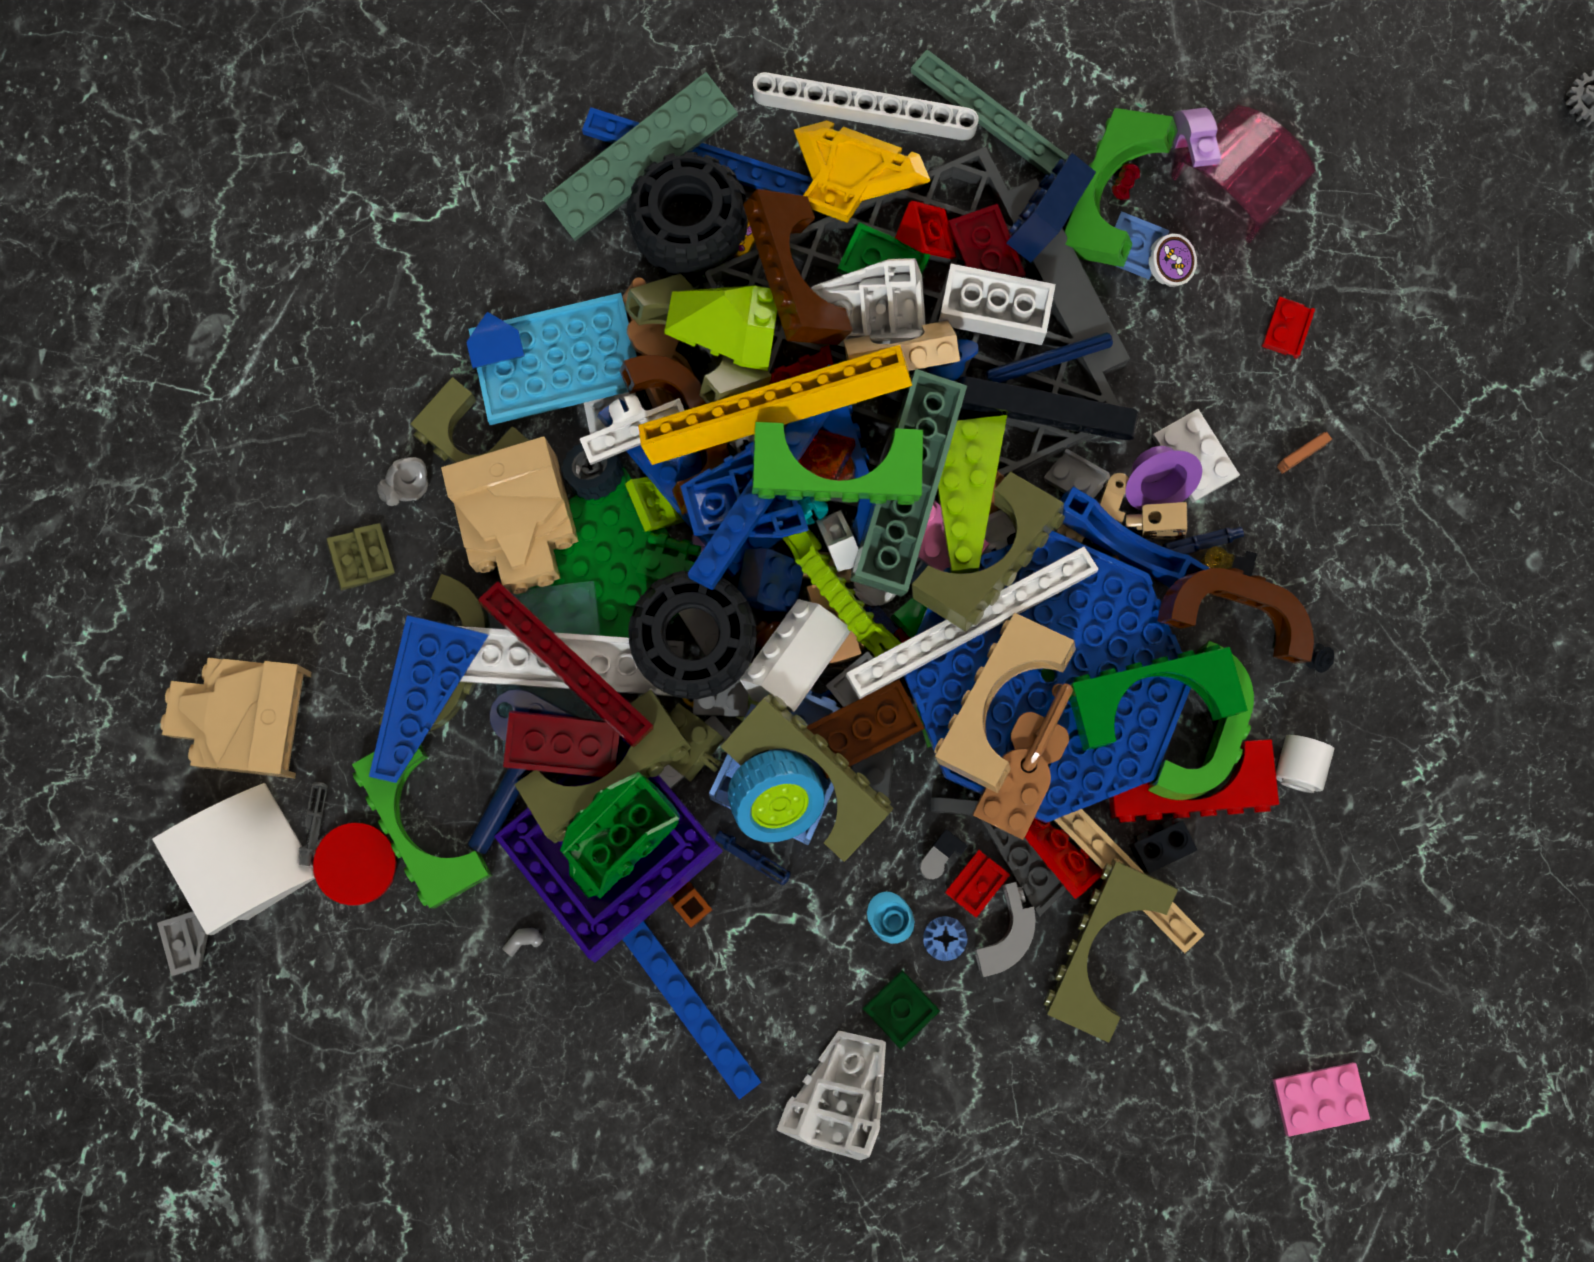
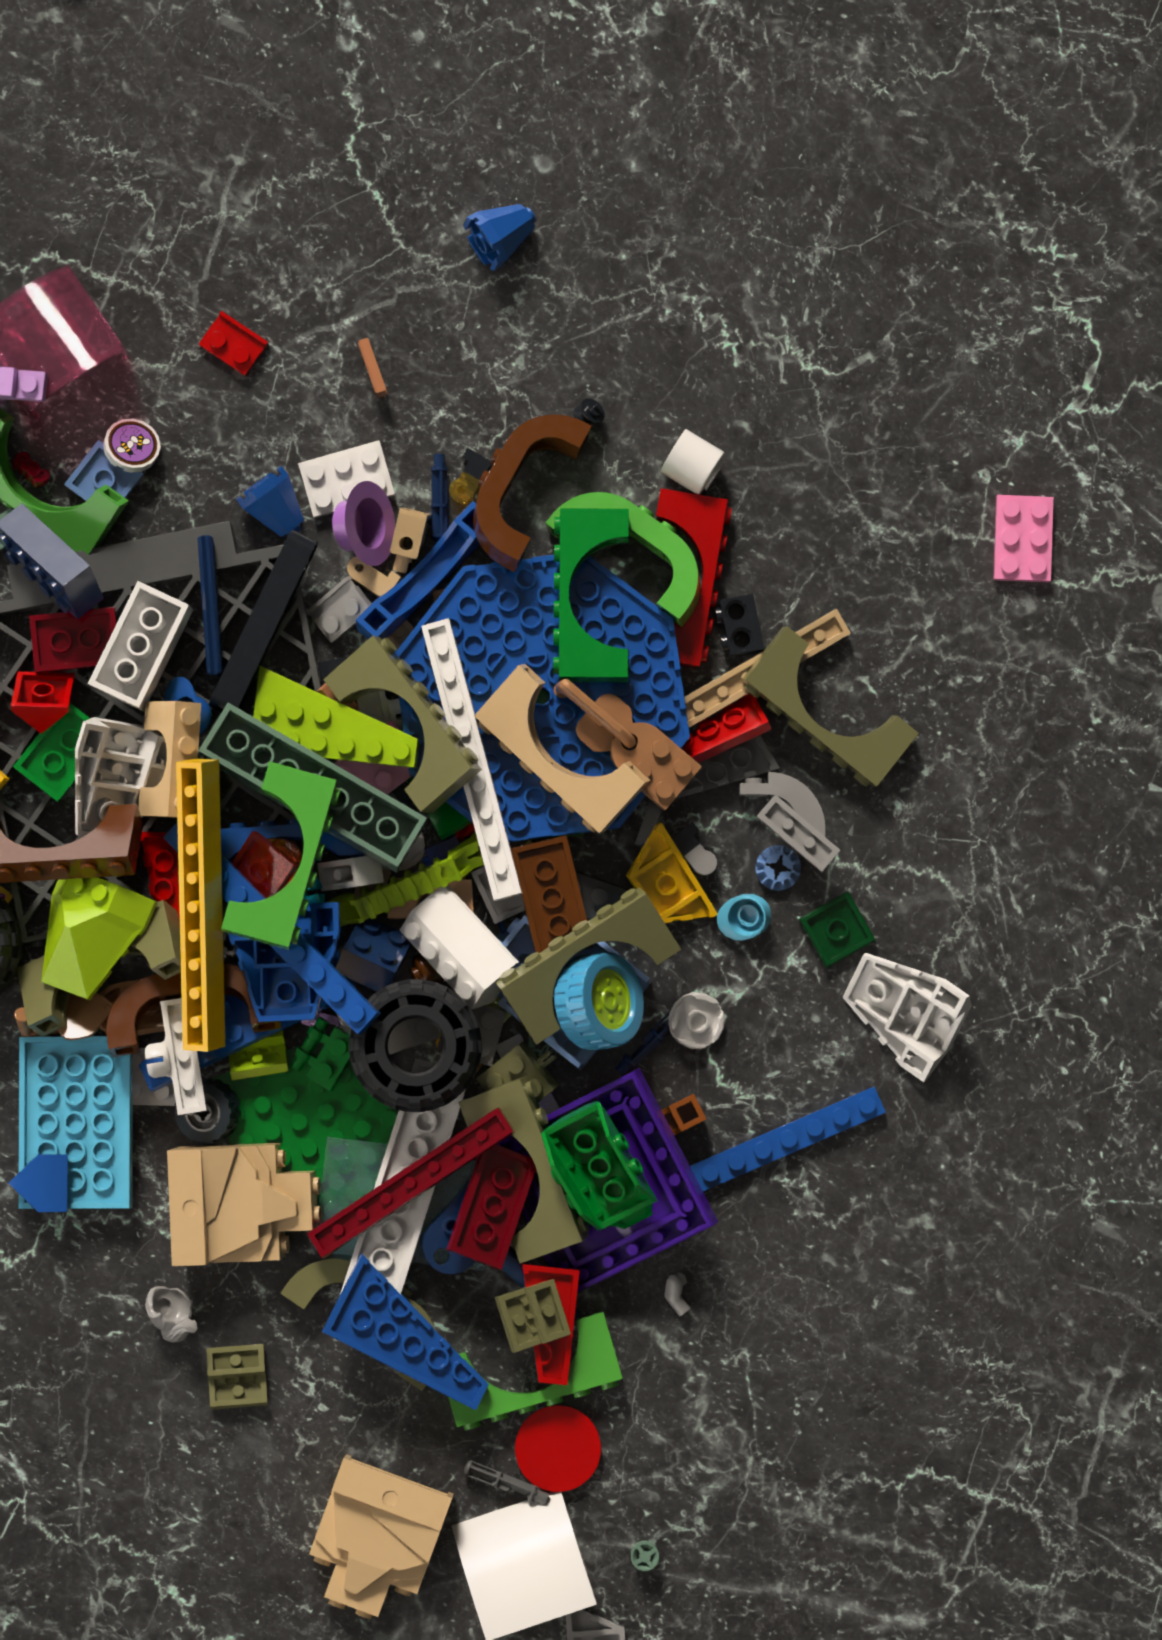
camera: 75 degrees left, 5 degrees up
(265, 970) = (643, 1562): none -> sand green wheel
(440, 416) = (116, 1265): olive arch -> none
(467, 807) = (532, 1315): none -> olive slope
(478, 825) = (554, 1356): none -> red wing
(782, 896) = (696, 1020): none -> white tile
(906, 836) = (668, 879): none -> yellow wing
(977, 883) = (731, 821): red plate -> none
(983, 949) = (798, 833): none -> light grey plate
(1157, 393) = (273, 503): none -> blue cone
(1462, 534) = (499, 232): none -> blue cone

